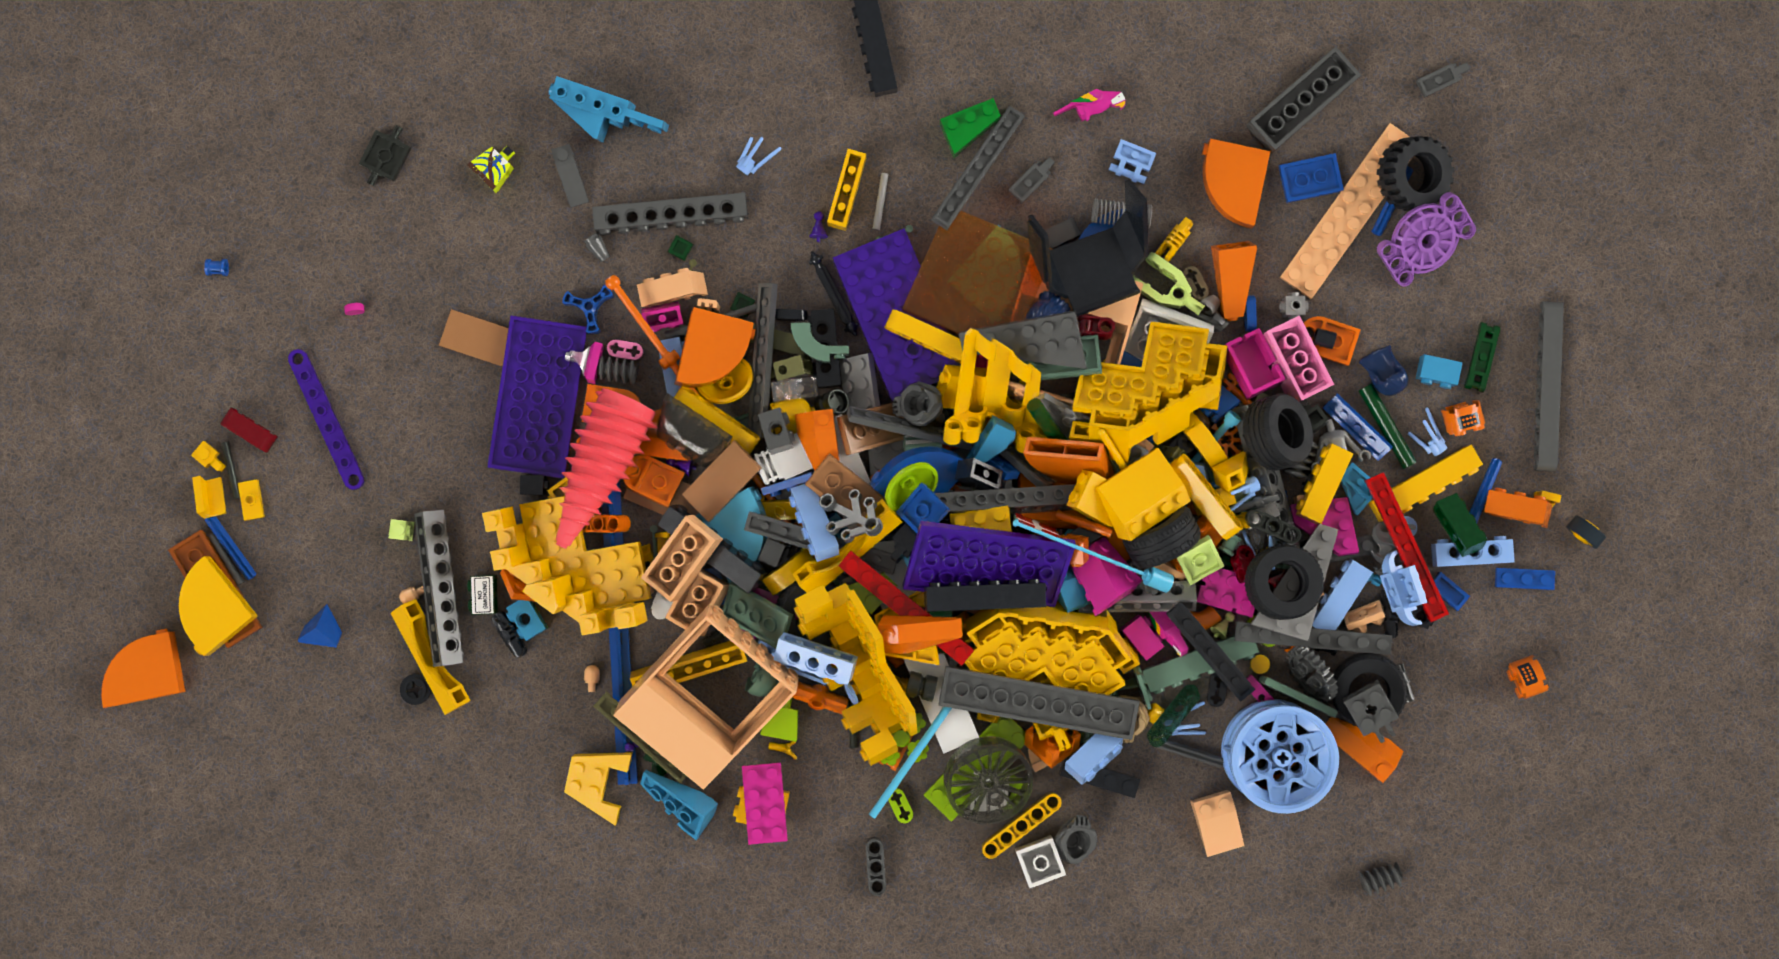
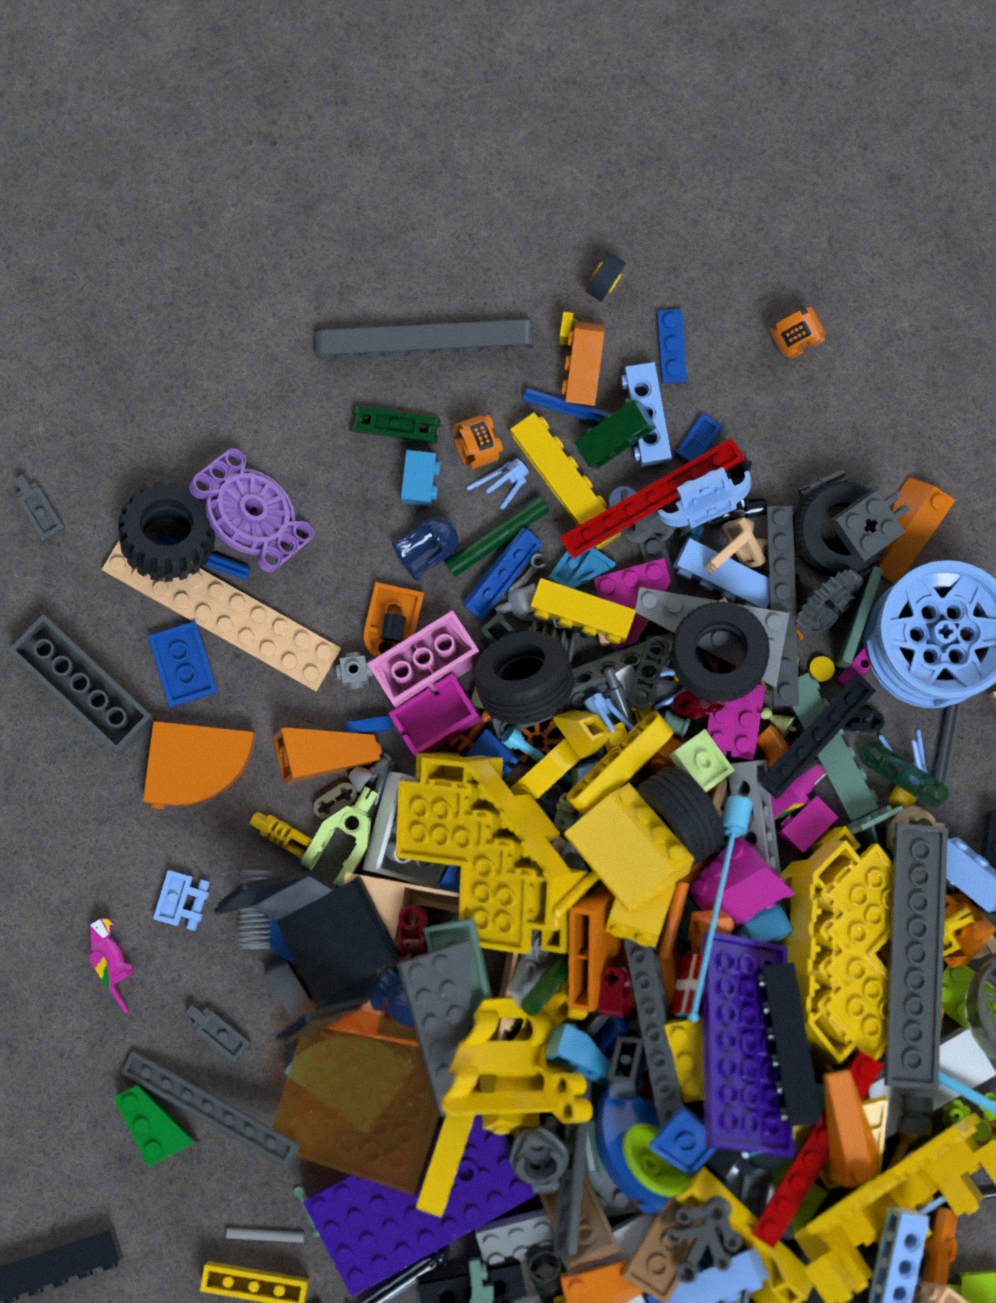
camera: 95 degrees left, 5 degrees down
(1033, 472) = (615, 995): none -> dark red piece
(1359, 599) = (727, 552): none -> light nougat tile

